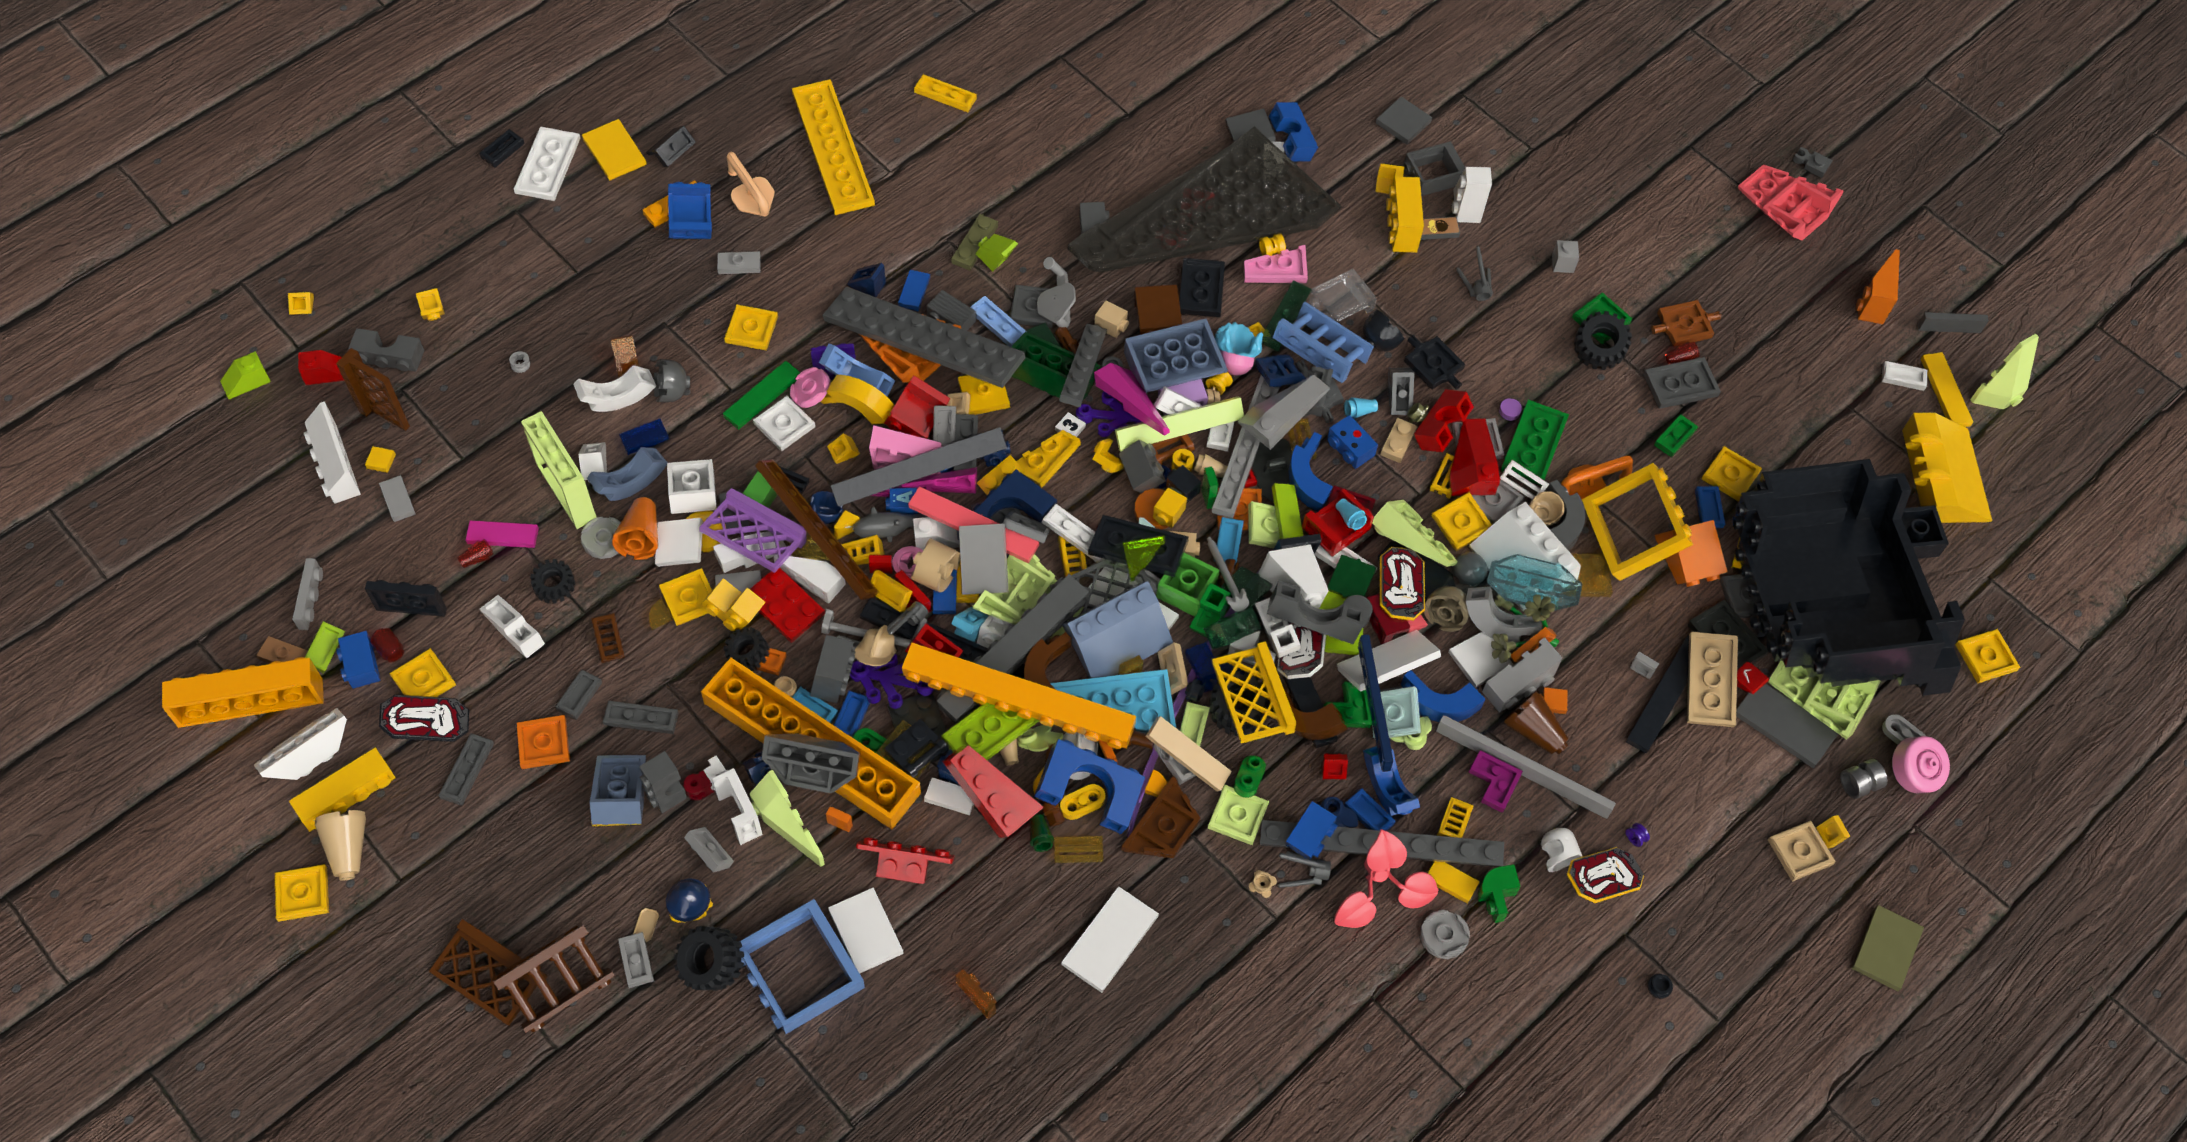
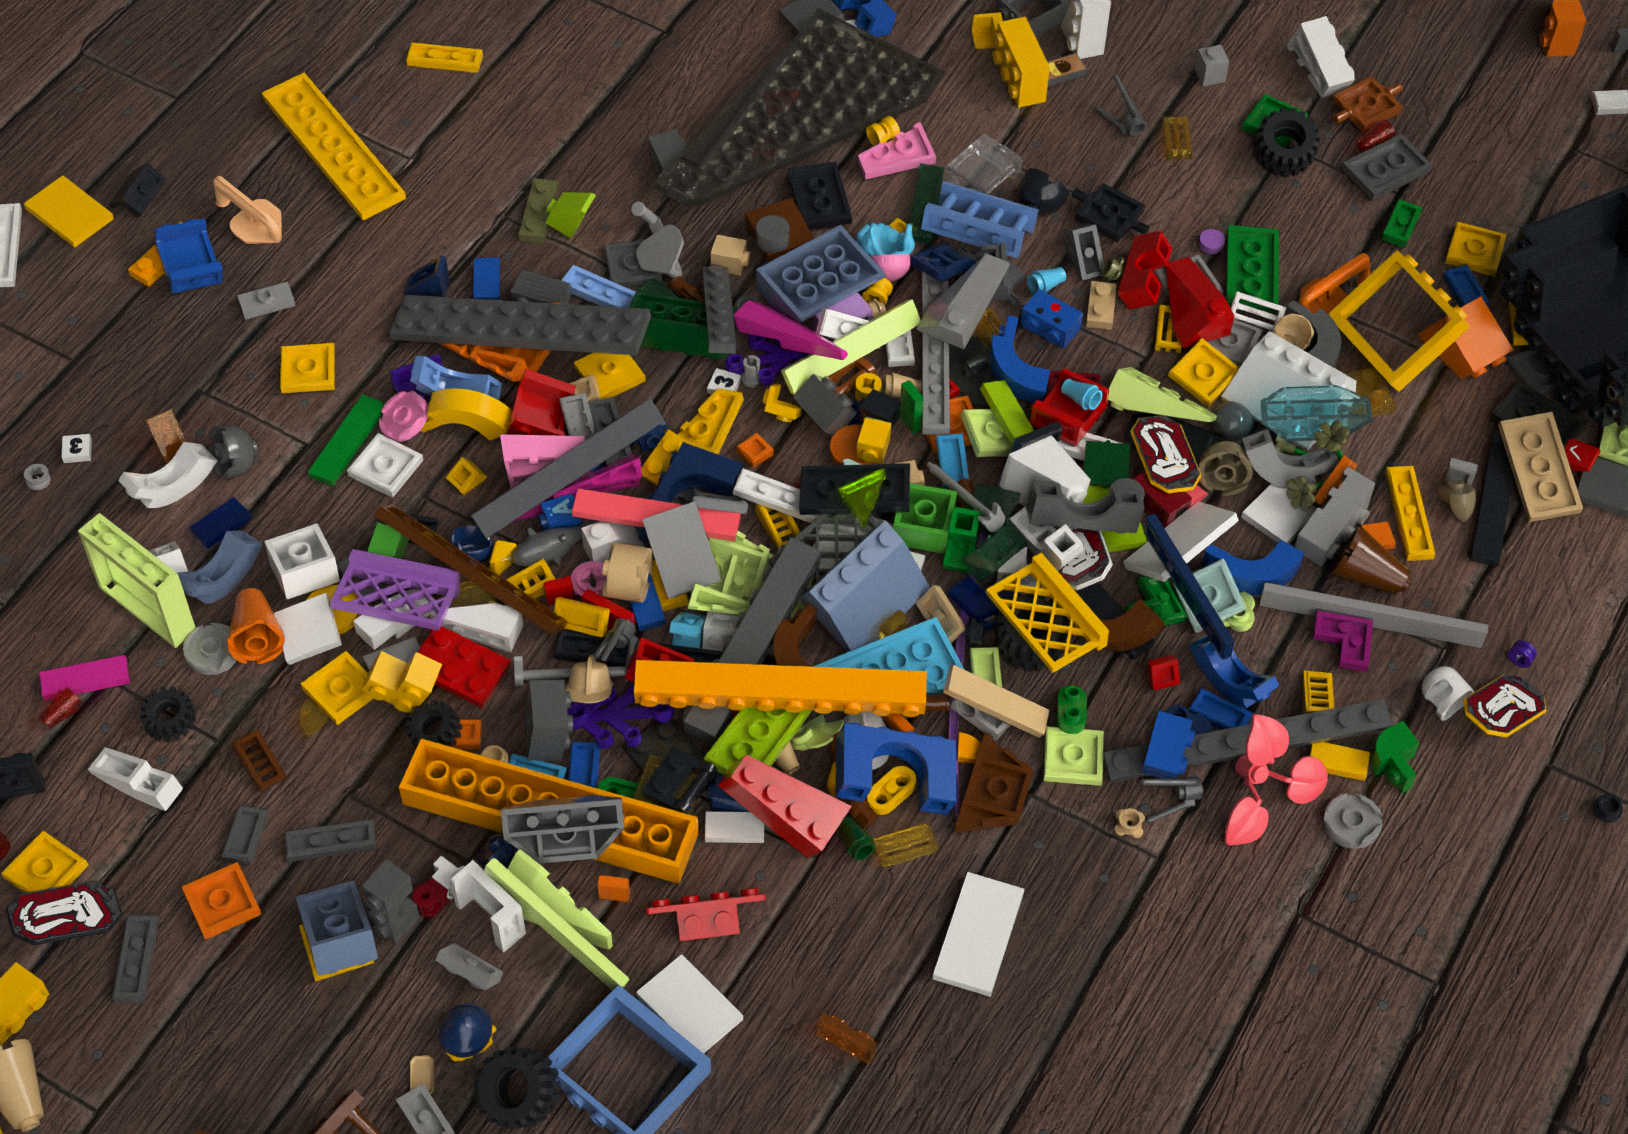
camera: 15 degrees left, 5 degrees down
(556, 346) = (76, 448): none -> white tile
(781, 838) = (556, 926): none -> yellowish green tile
(1075, 489) = (754, 450): none -> orange tile
(1093, 422) = (751, 370): none -> light grey pin
(1148, 312) = (772, 234): none -> dark grey piece
(1512, 325) = (1178, 152): none -> clear yellow tile
(1589, 688) = (1410, 513): none -> yellow tile
(1635, 687) = (1460, 497): none -> dark tan plate
(1661, 272) = (1322, 56): none -> white wedge

